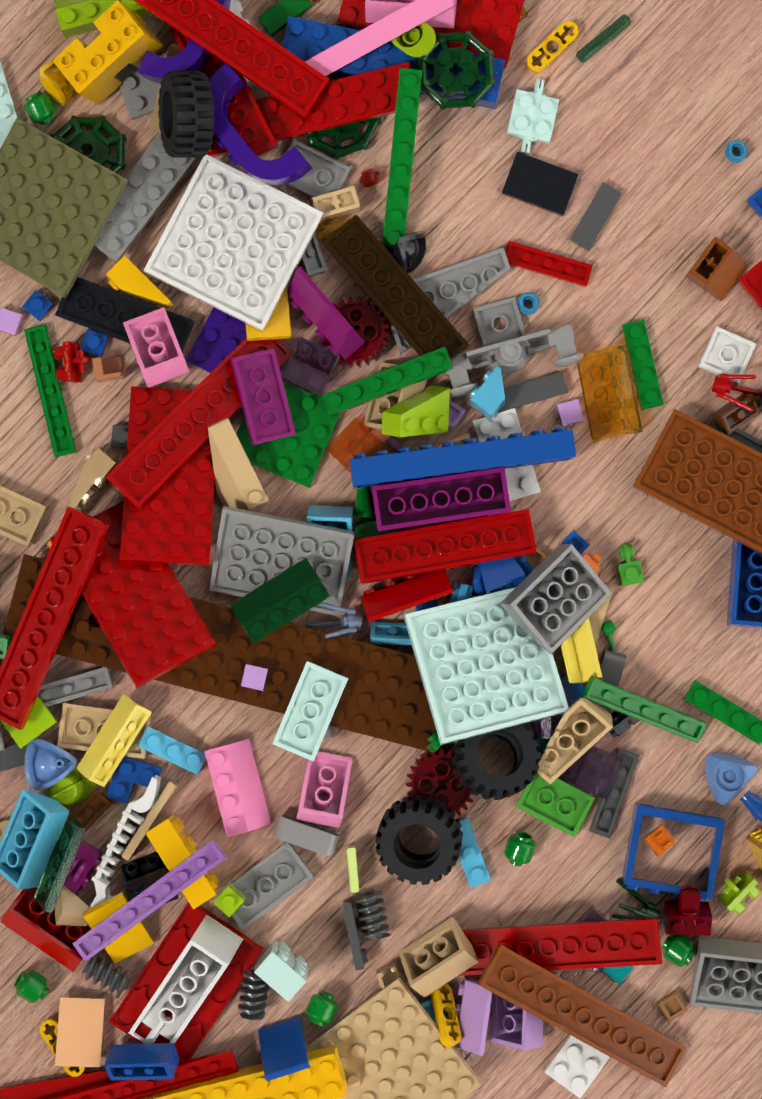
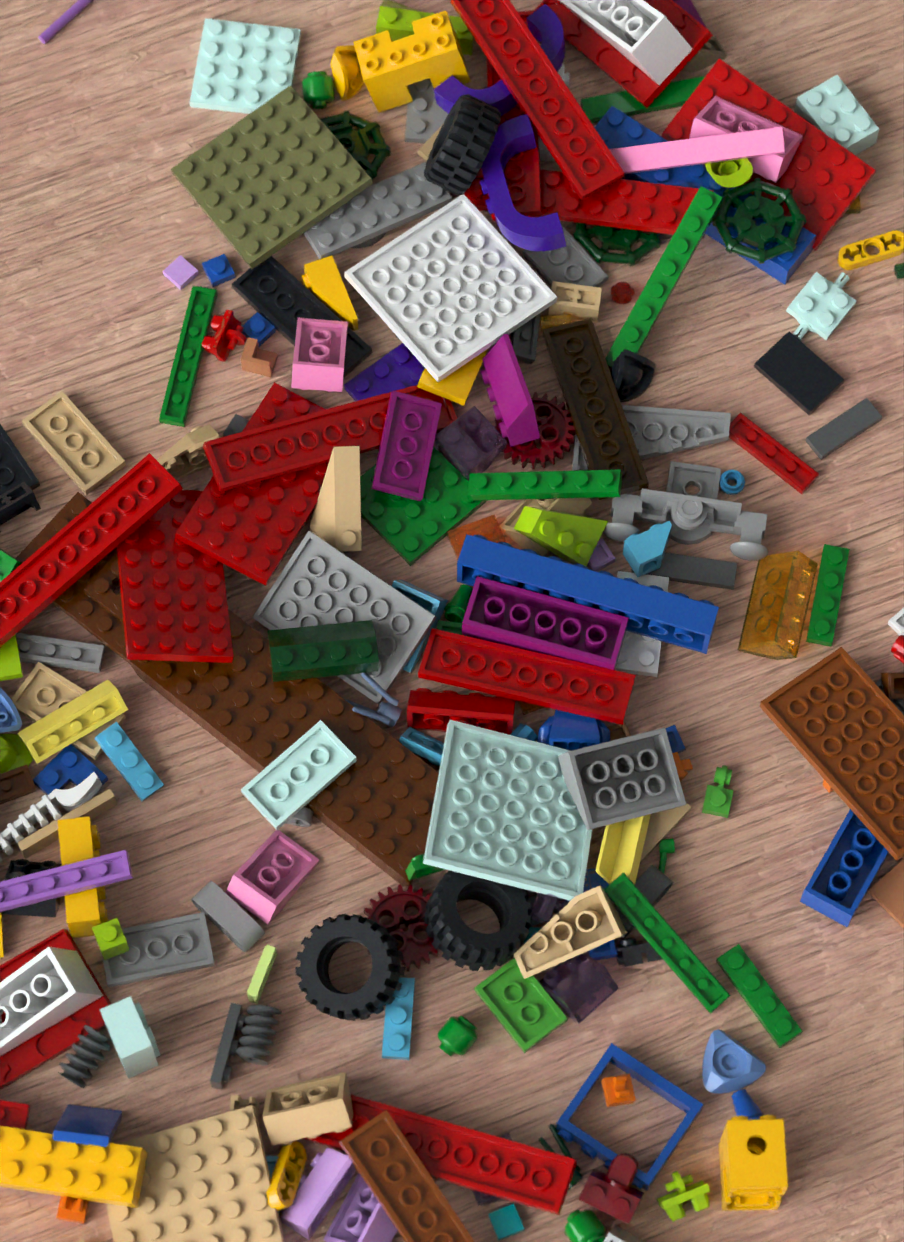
camera: 20 degrees right, 20 degrees down
(238, 787) = (179, 831): bright pink slope -> none
(254, 677) = (256, 715): lavender tile -> none
(321, 1008) = (150, 1109): green head -> none
(570, 412) = (729, 608): lavender tile -> none
(609, 808) = (591, 1029): dark grey tile -> none

